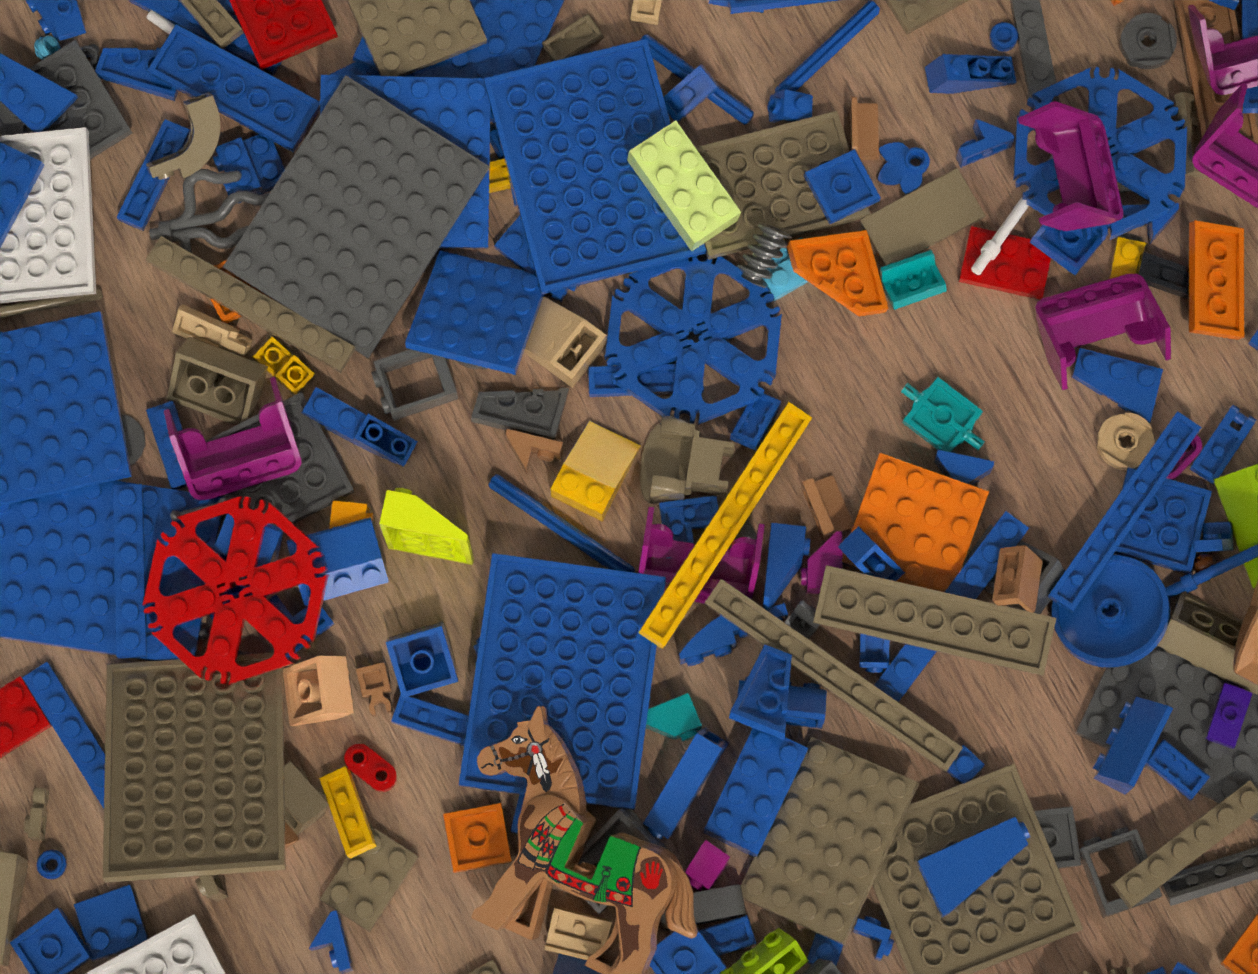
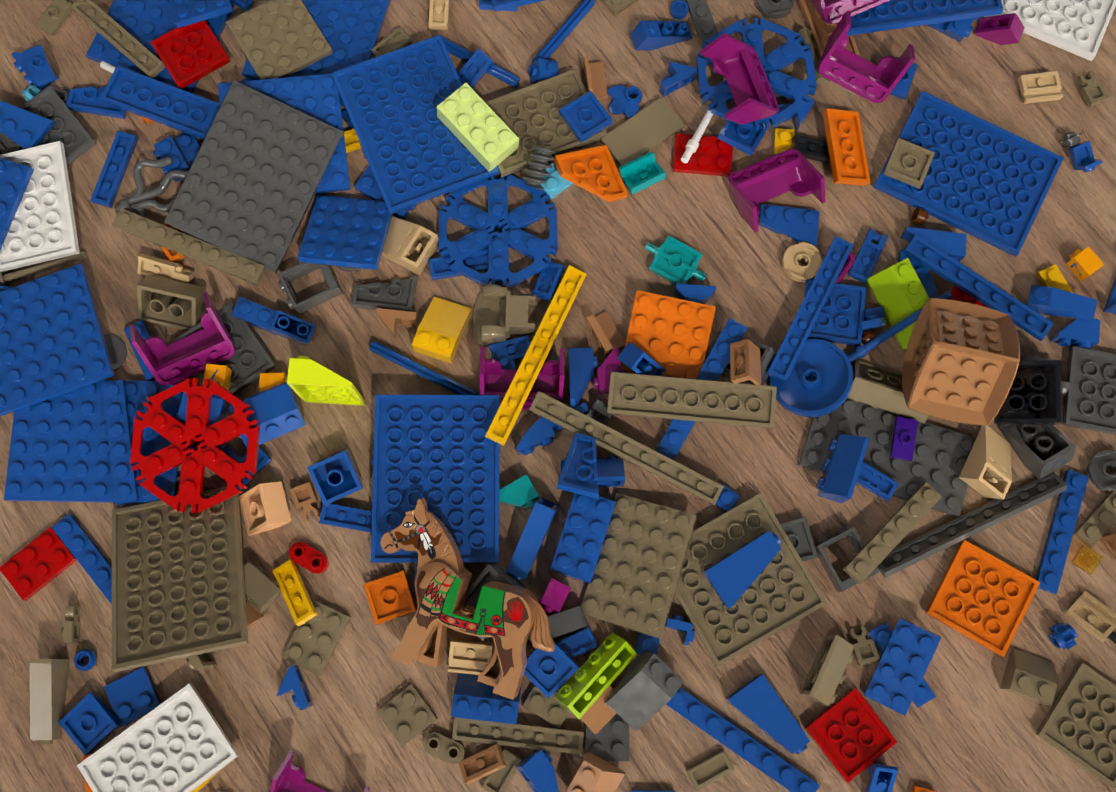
camera: 10 degrees left, 0 degrees up
(200, 144) = (142, 141): dark tan arch -> none
(275, 492) = (218, 373): none -> light orange brick
(283, 365) = (217, 286): yellow slope -> none
(874, 653) = (652, 429): blue bracket -> none

